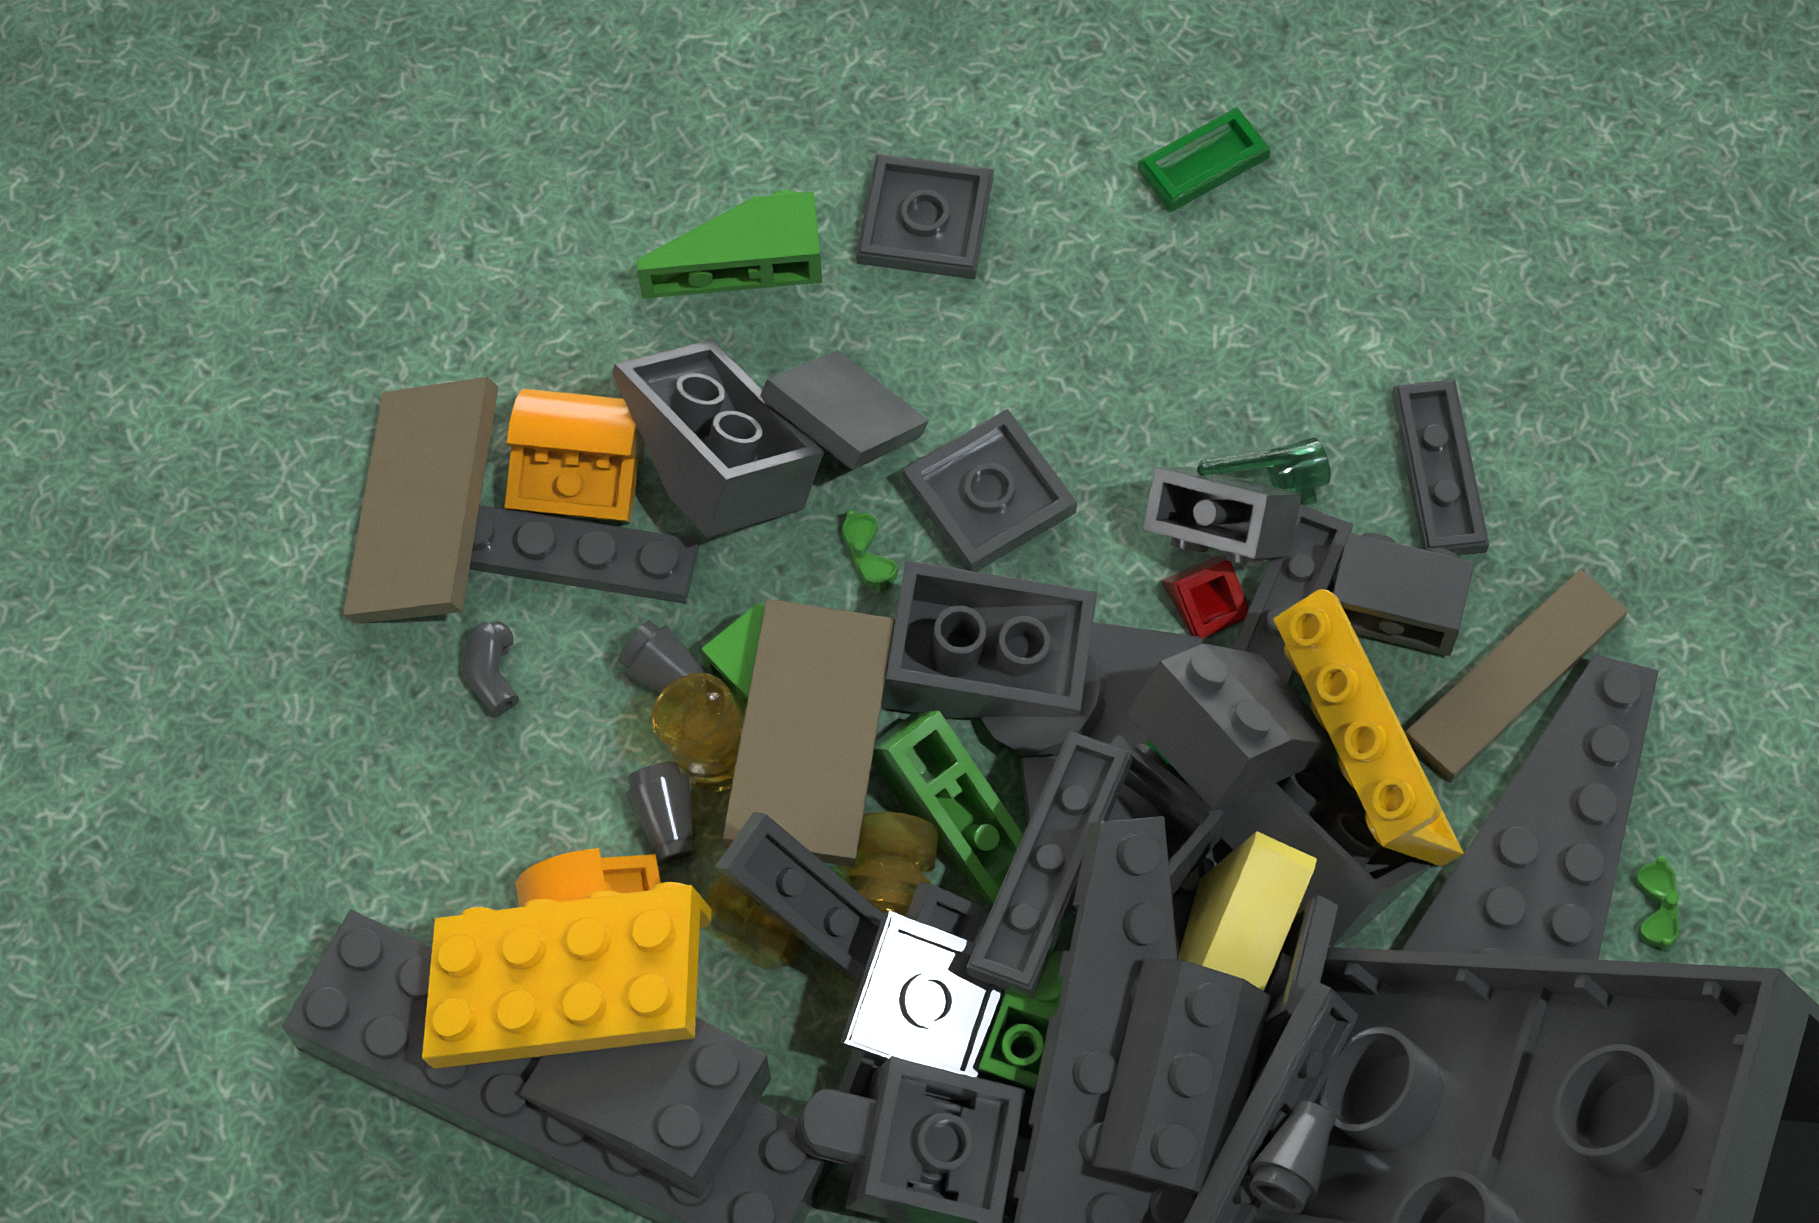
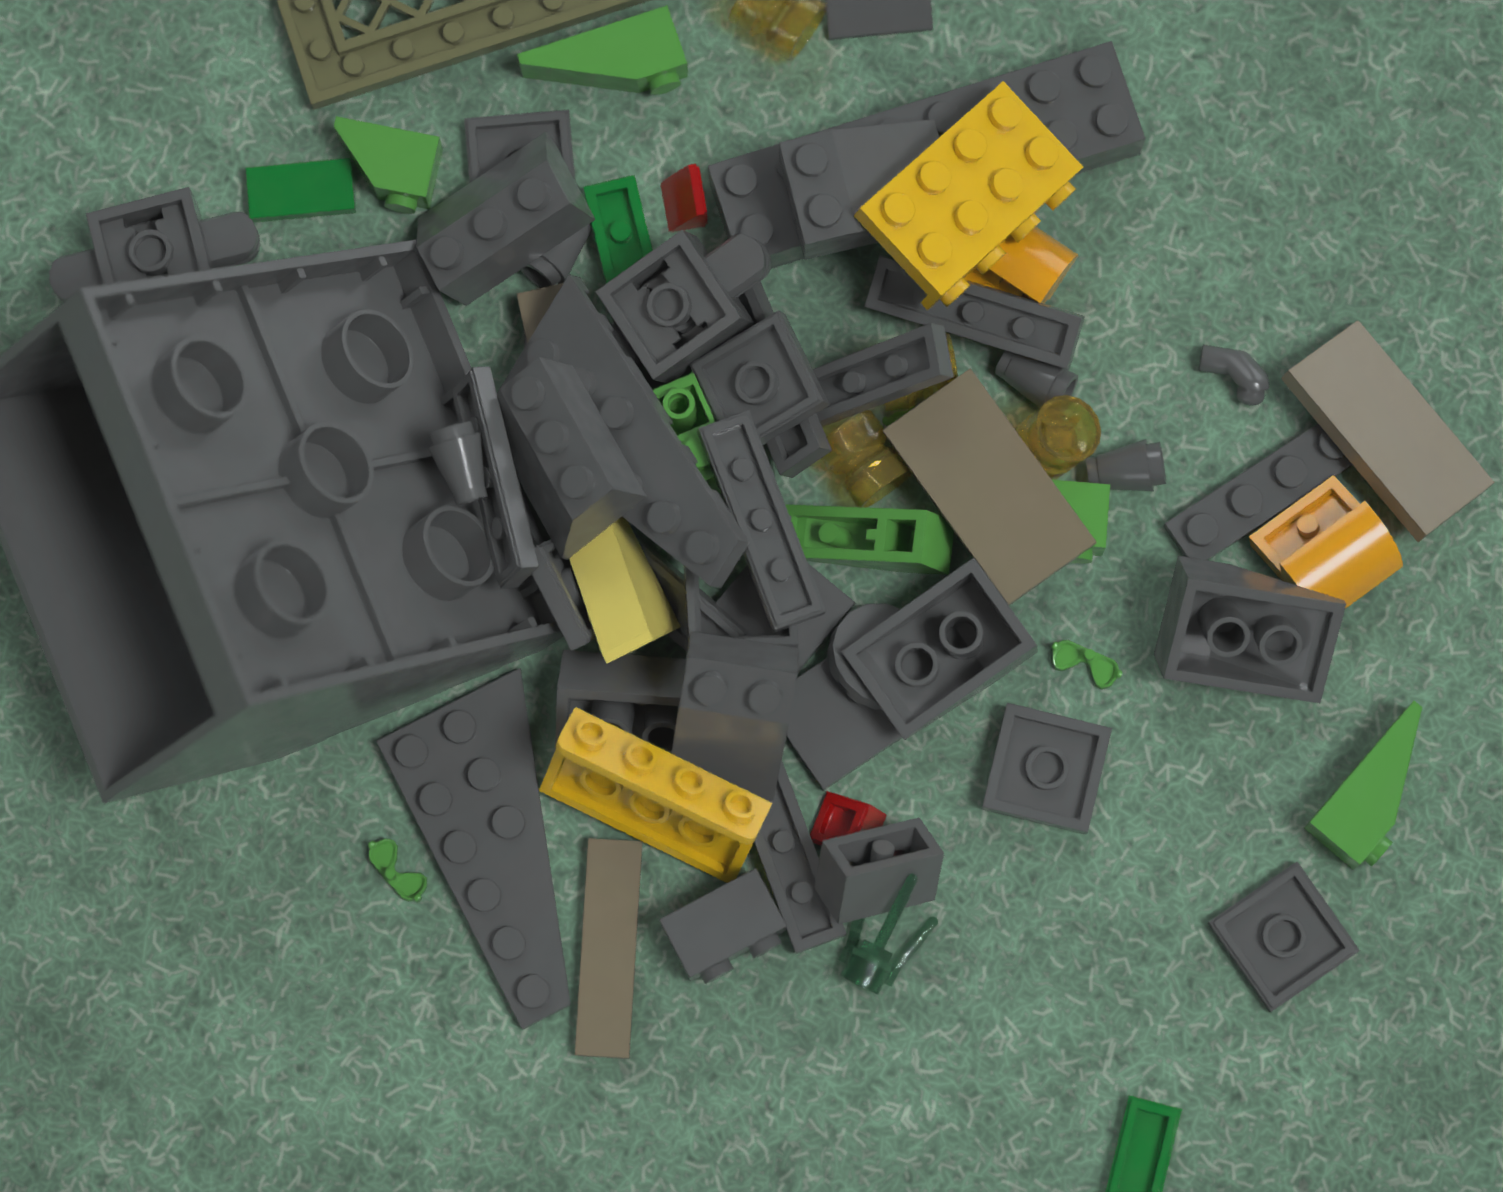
camera: 135 degrees right, 15 degrees up
(639, 856) = (981, 315): none -> dark grey plate
(843, 409) = (1187, 732): dark grey tile -> none
(1440, 467) = (780, 1056): dark grey tile -> none

